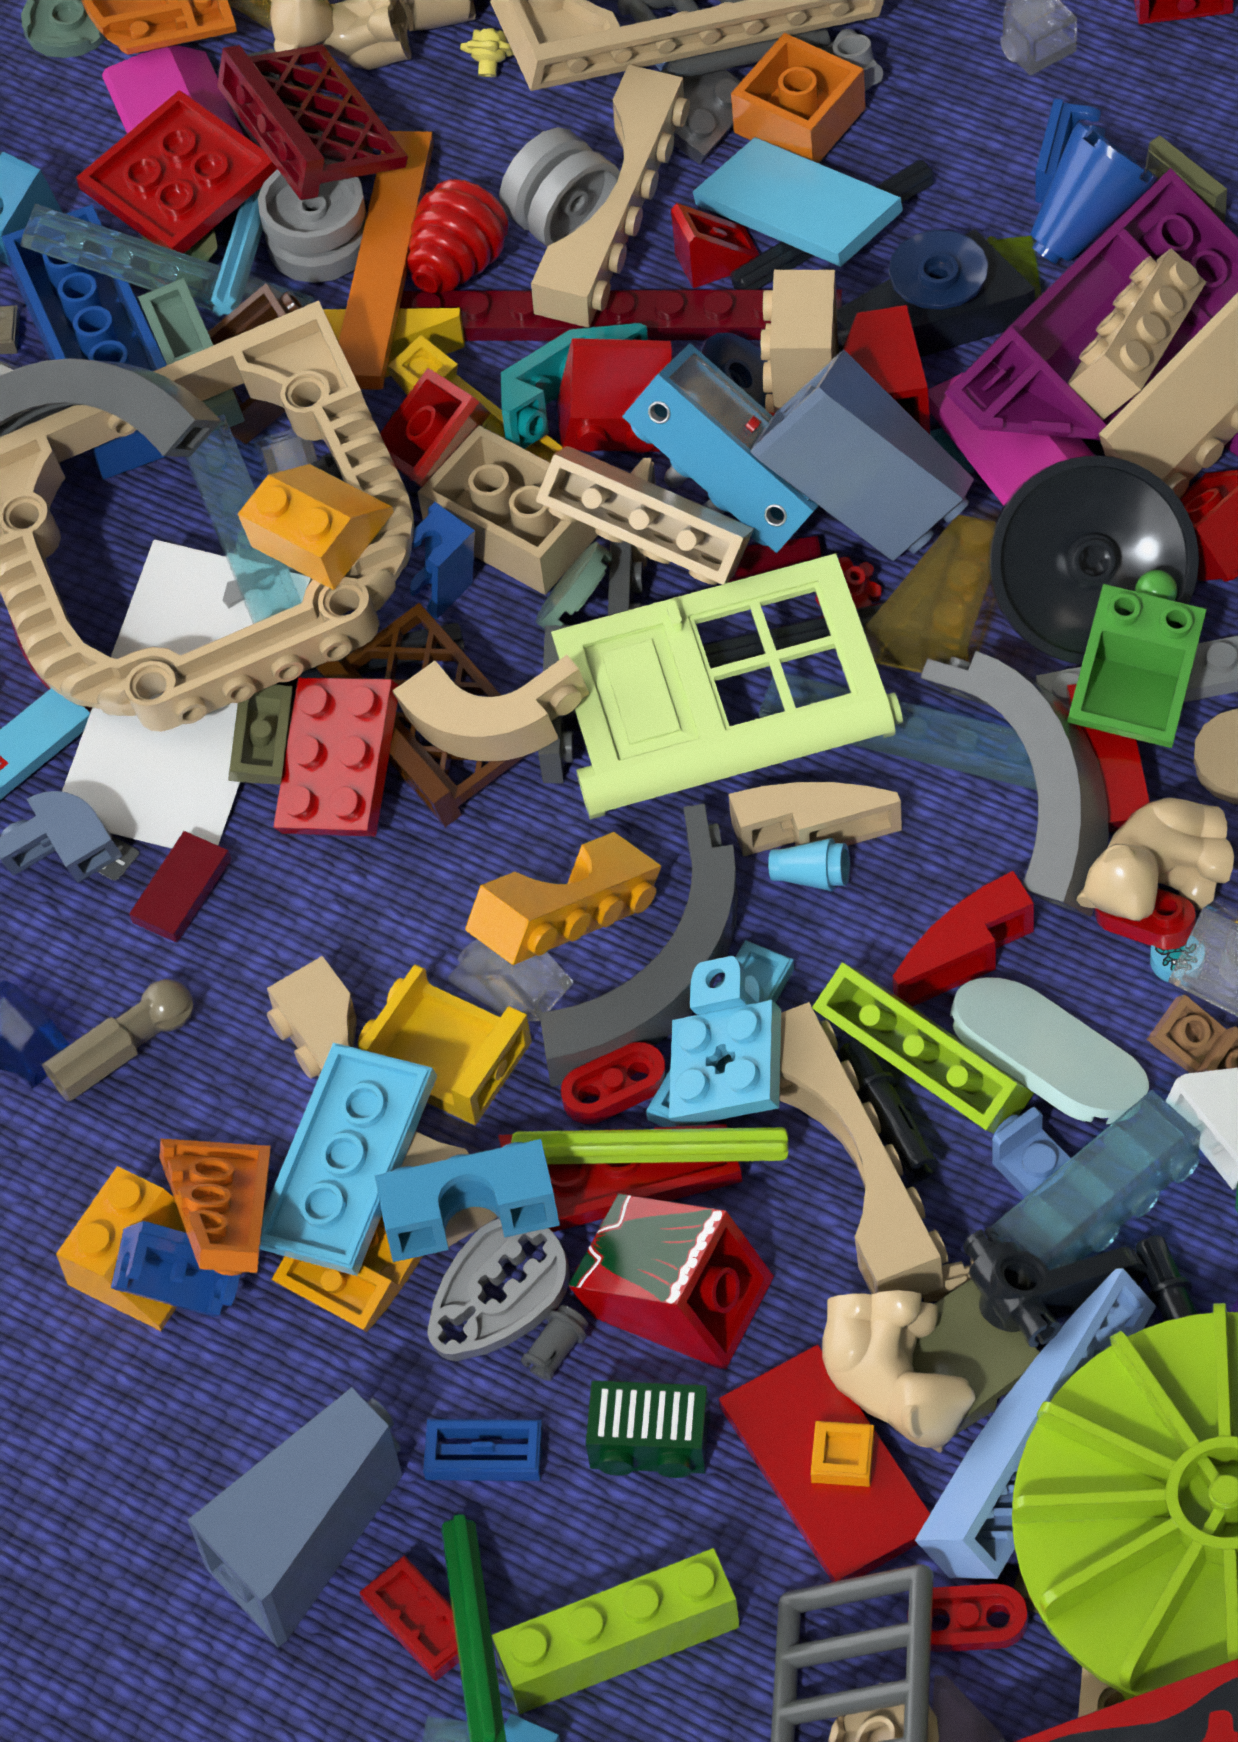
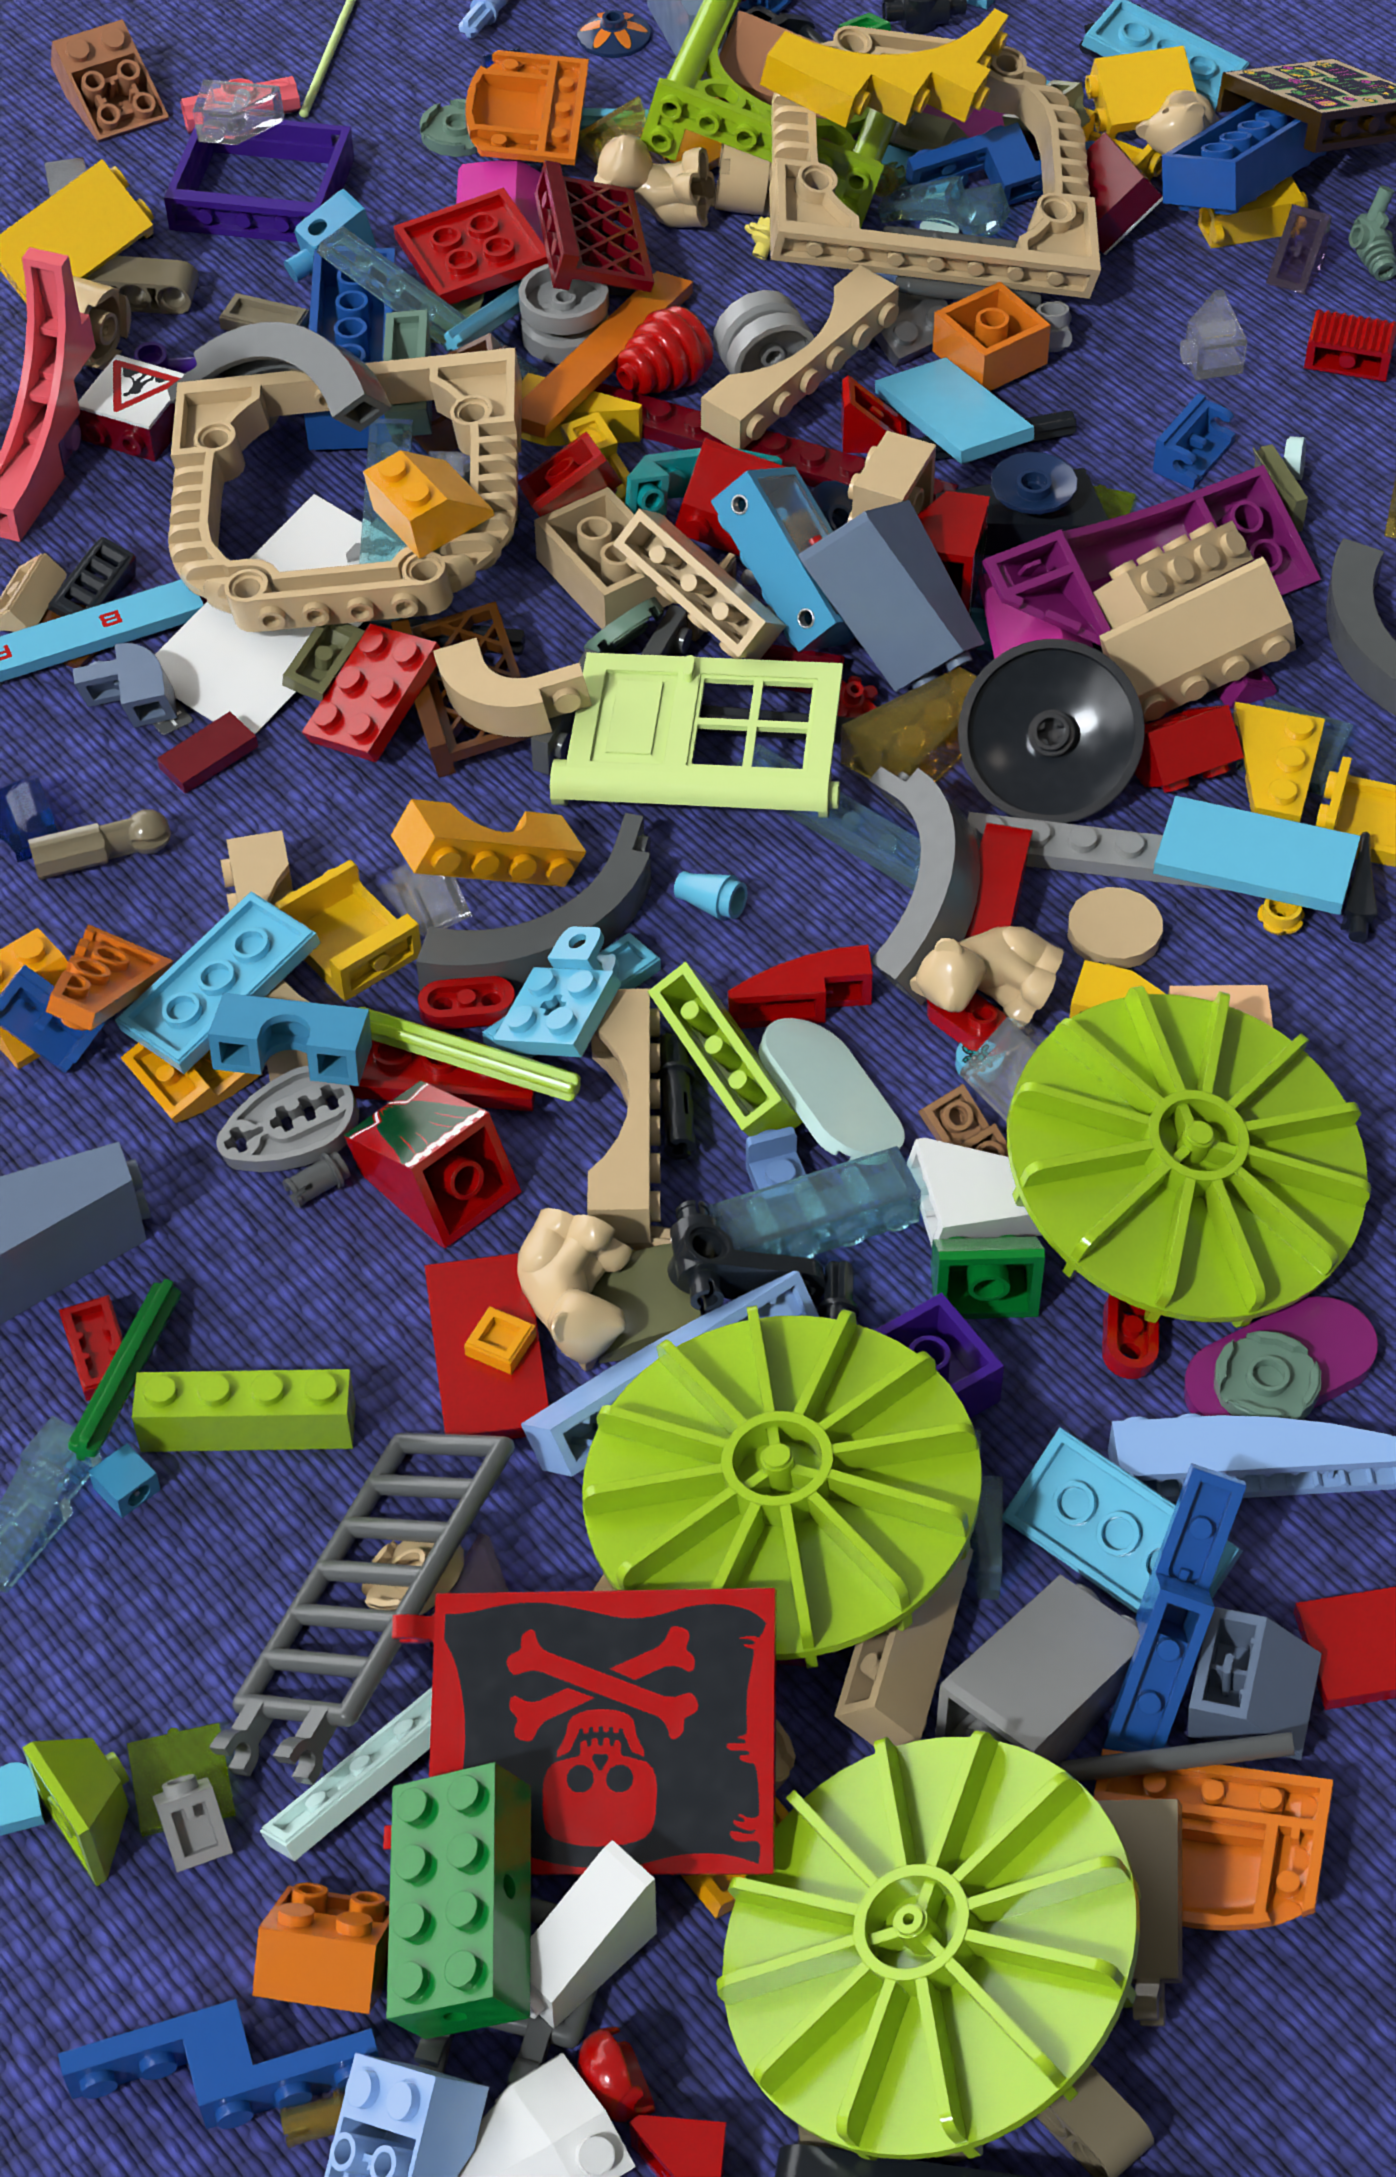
camera: 15 degrees right, 5 degrees down
(447, 558) = (533, 577): blue hinge -> none
(493, 1460) = (214, 1248): blue tile -> none
(648, 1428) = (354, 1267): dark green brick -> none
(810, 813) = (723, 849): tan slope -> none
(969, 1613) = (541, 1503): red plate -> none
(1086, 194) = (1189, 460): blue cone -> none
(1138, 661) = (1049, 816): bright green slope -> none
(1183, 136) = (1295, 456): none -> light aqua tile

